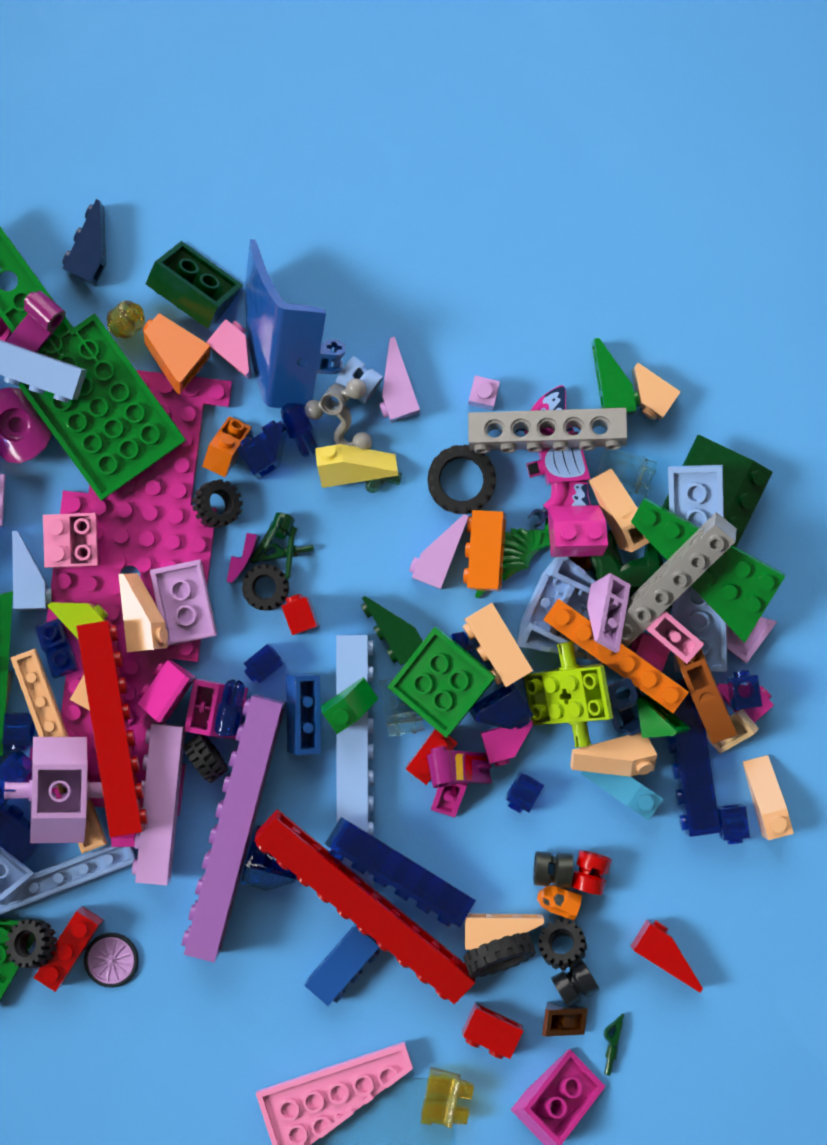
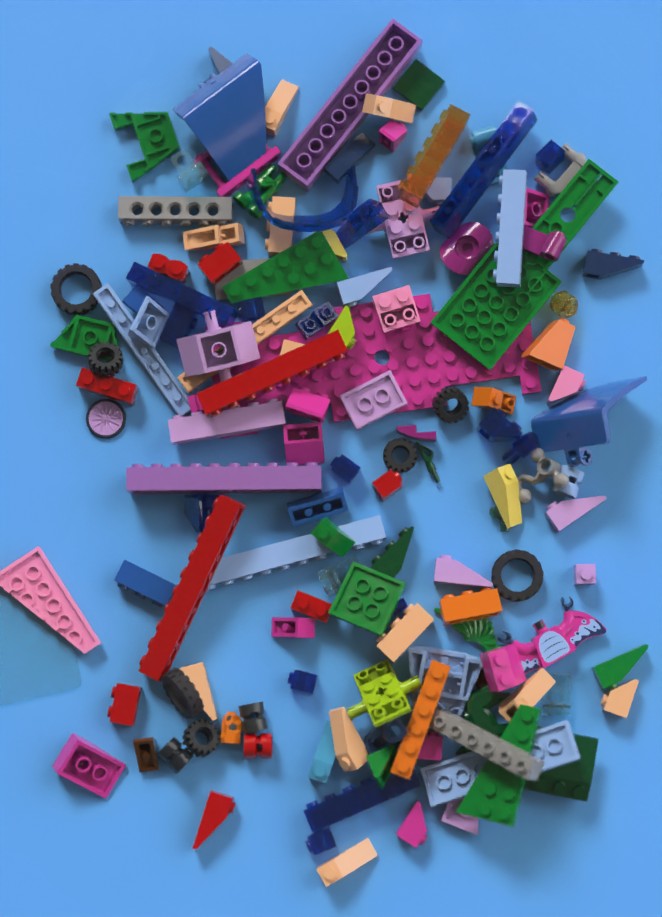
camera: 80 degrees right, 5 degrees down
(142, 620) = (353, 374): light nougat slope -> none
(193, 284) = (603, 345): dark green slope -> none
(205, 758) = (267, 445): black tyre -> none
(230, 709) = (305, 453): clear blue arm -> none
(280, 528) = (445, 454): dark green plant -> none
(399, 872) = (223, 605): clear blue brick -> none
(441, 1098) = (68, 679): clear yellow hips -> none
(456, 767) = (308, 622): magenta door -> none
(503, 709) = (359, 649): clear blue slope -> none
(504, 743) = (335, 657): dark pink slope -> none
(607, 610) = (452, 704): lavender slope -> none
(612, 419) = (579, 634): light grey brick -> none
(612, 1049) = (130, 796): dark green hand -> none
(675, 637) = (446, 758): bright pink slope -> none
(707, 698) = (413, 791): dark orange slope -> none
(745, 728) = (388, 821): tan plate -> none
(752, 699) = (411, 821): clear blue brick -> none

